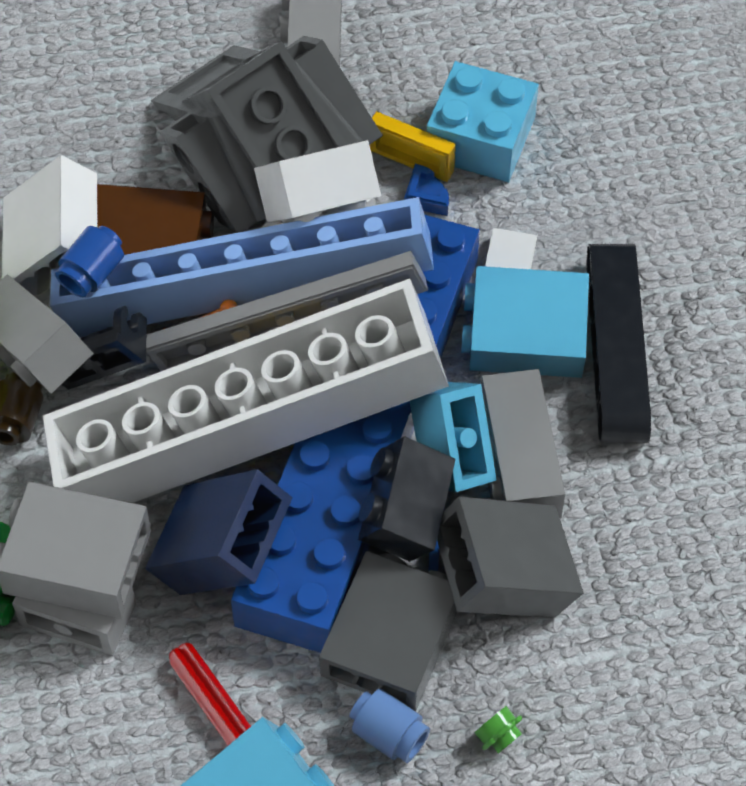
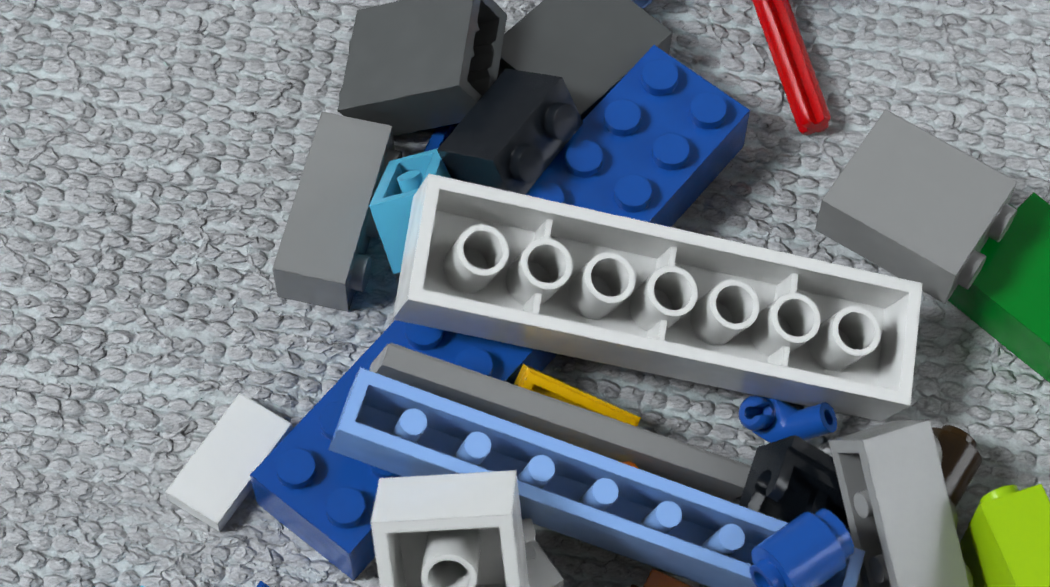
camera: 160 degrees left, 5 degrees up
(219, 533) = (739, 176): dark blue brick -> none
(527, 321) = (245, 355): medium azure brick -> none
(618, 344) = (146, 307): black beam -> none

